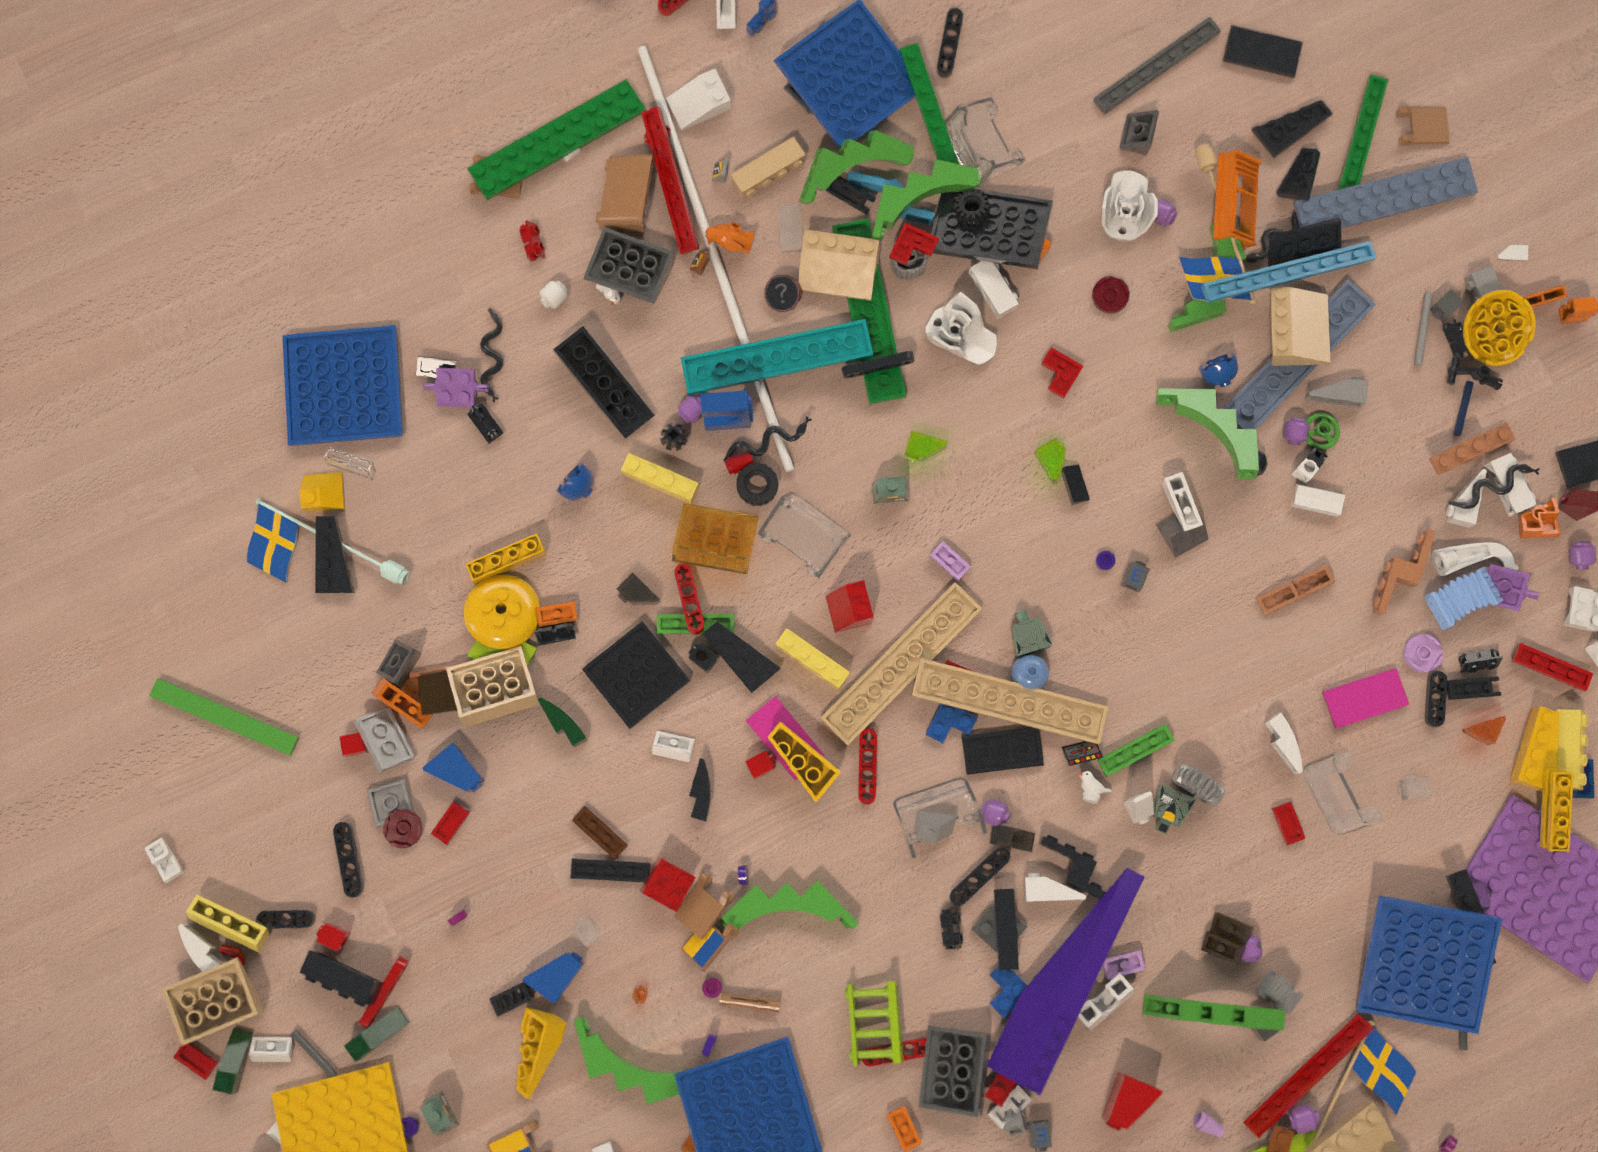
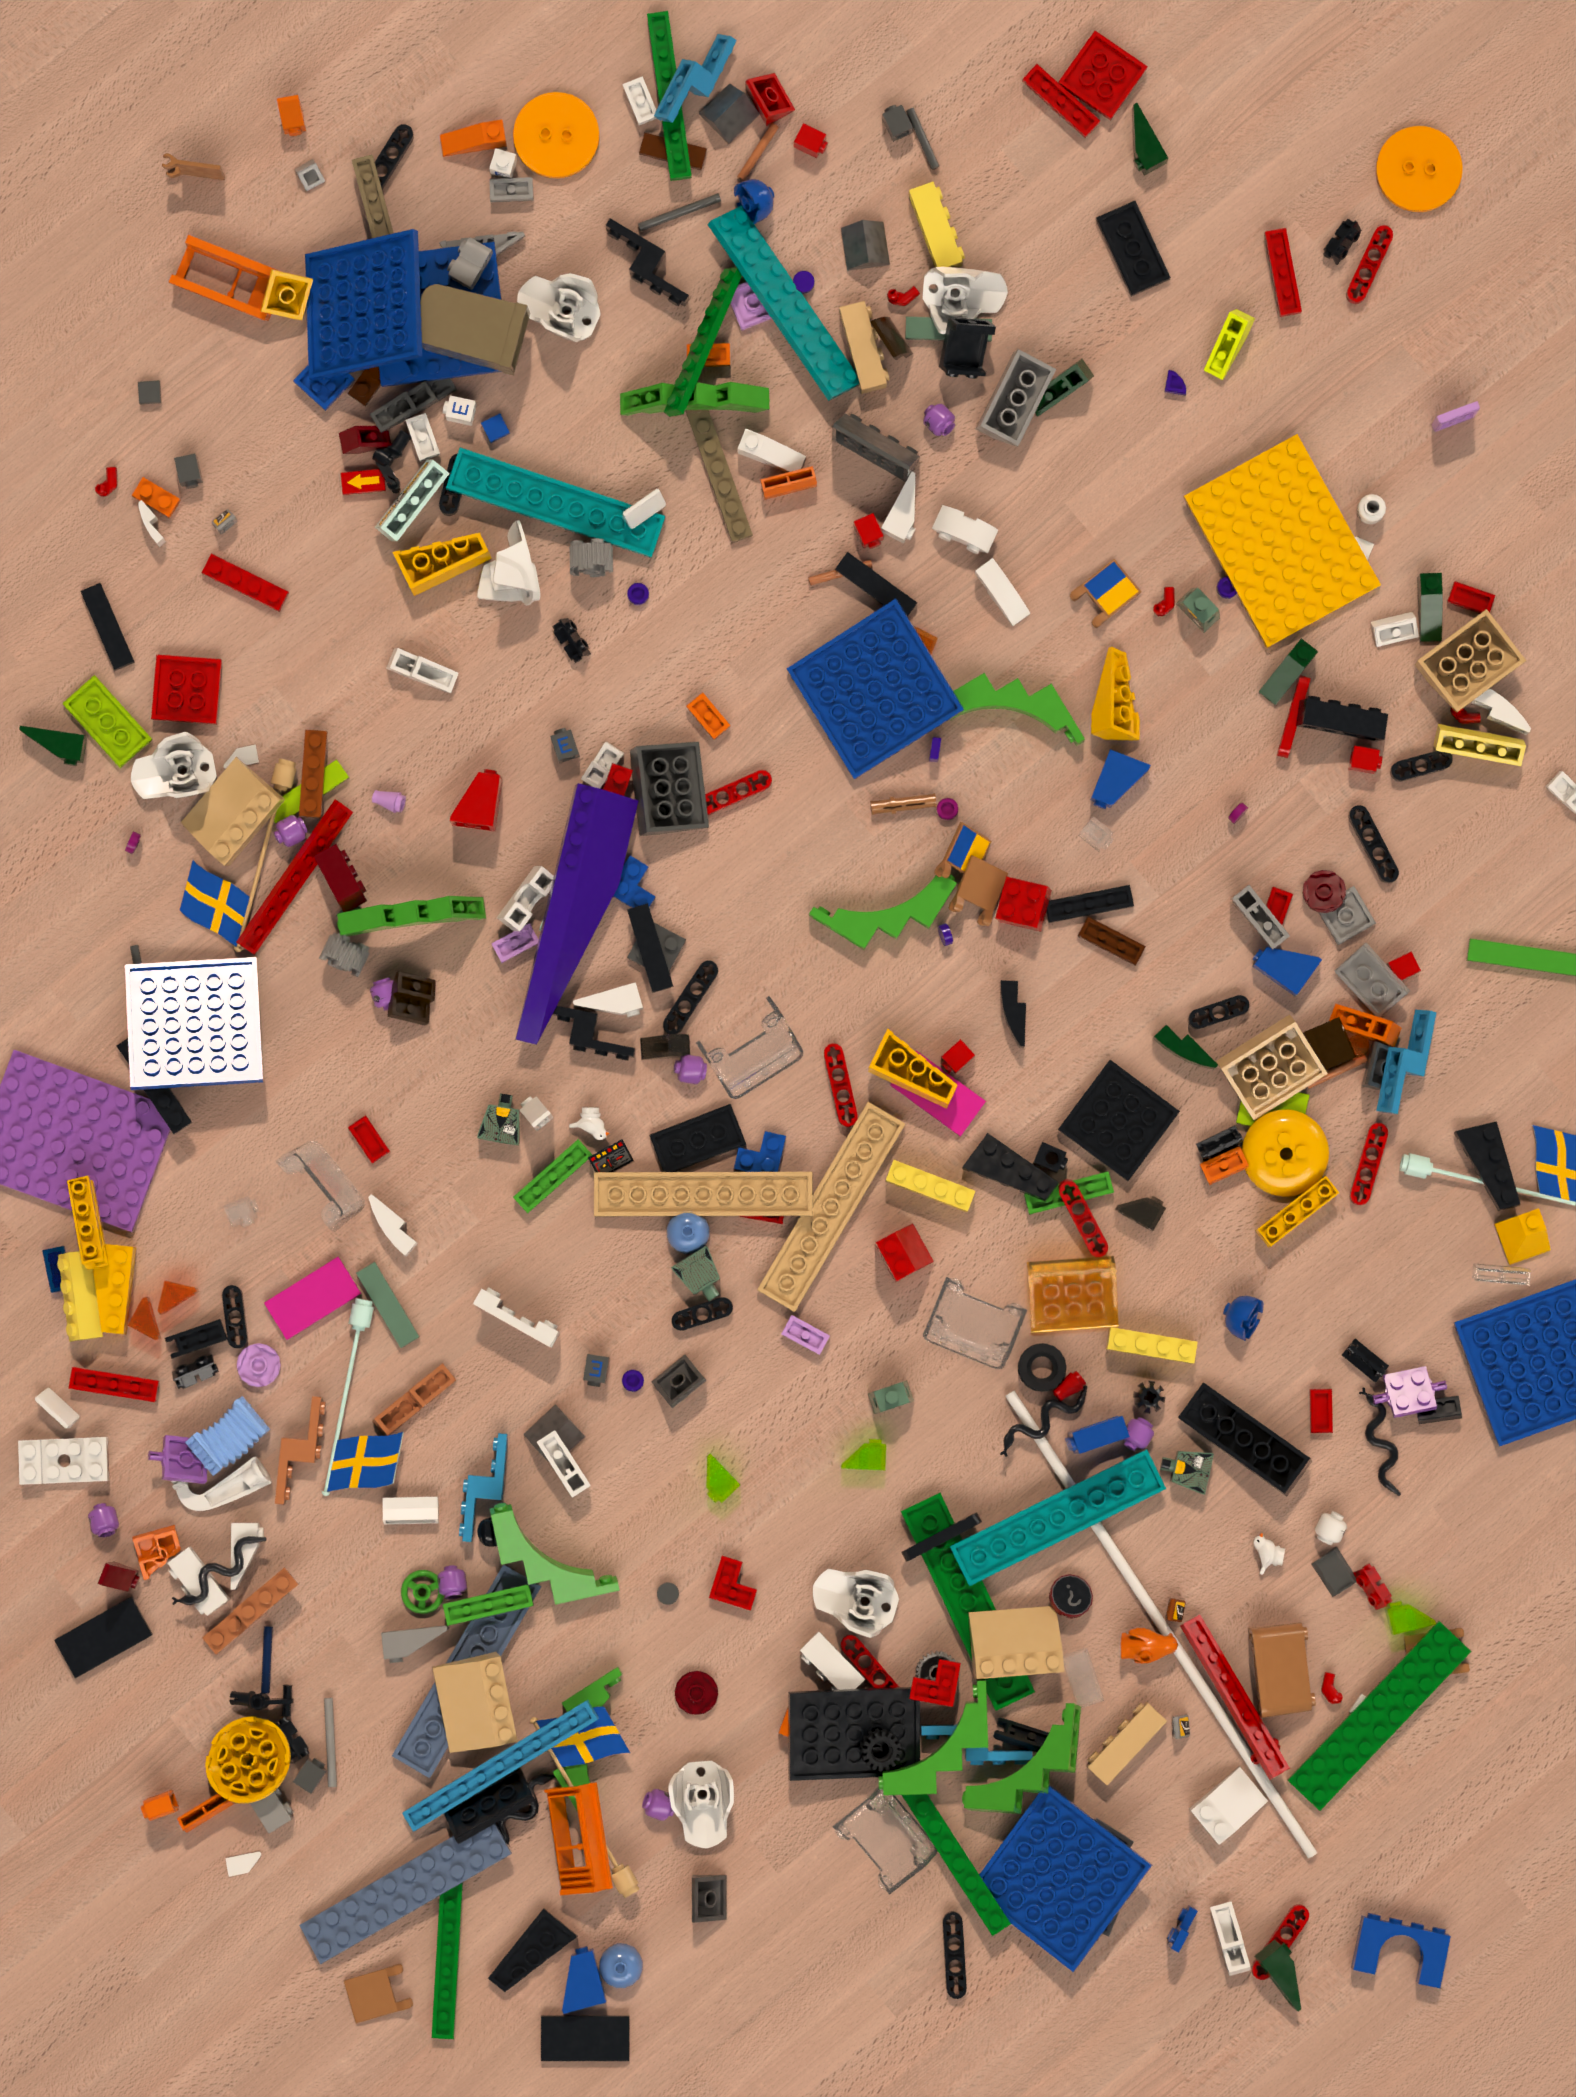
camera: 165 degrees right, 5 degrees up
(313, 1053) = (1349, 636): dark grey bar -> none
(375, 661) = (1406, 1061): none -> dark azure bracket
(431, 583) = (1372, 1165): none -> red beam
(464, 819) = (1260, 917): none -> light grey slope
(467, 1125) = (1167, 603): none -> red arm
(510, 753) = (1232, 1001): none -> black beam
(512, 208) = (1406, 1618): none -> clear neon green slope
(526, 992) = (1143, 754): black slope -> none
(534, 392) = (1321, 1411): none -> red tile
(560, 261) = (1334, 1572): none -> dark grey piece
(592, 170) = (1329, 1690): none -> red arm
(629, 265) = (1252, 1580): dark grey slope -> none
(640, 994) = (1022, 782): clear orange plate -> none
(656, 370) = (1189, 1469): none -> torso
(673, 746) = (1057, 1053): white slope -> none
(892, 1032) = (751, 831): lime fence -> none
(933, 826) = (753, 1037): light grey slope -> none
(953, 937) = (703, 925): black hinge -> none
(963, 276) = (872, 1669): none -> red beam
(1016, 1125) = (590, 749): light grey slope -> none
(1019, 597) = (688, 1325): none -> black beam
(1067, 548) = (678, 1381): none -> flat silver slope
(1075, 484) = (686, 1458): black slope -> none
(1115, 379) = (668, 1593): none -> dark grey tile
(1157, 65) = (704, 1989): dark grey tile -> none
(1198, 785) = (478, 1153): light grey gear -> none
(1216, 652) = (490, 1302): none -> white piece
(1220, 370) = (553, 1630): blue cylinder -> none
(1221, 98) = (620, 1965): none -> medium blue cylinder
(1252, 502) = (483, 1487): none -> dark azure bracket
(1254, 91) = (584, 1982): none -> blue slope
(1269, 1063) = (341, 877): none -> dark red brick
(1271, 403) = (488, 1604): none -> bright green plate
(1301, 176) = (509, 1890): black wing -> none
(1301, 676) = (387, 1304): none -> sand green tile
(1309, 465) = (427, 1547): white leg -> none
(1353, 551) = (361, 1459): none -> flag
(1515, 713) = (144, 1320): none -> clear orange slope

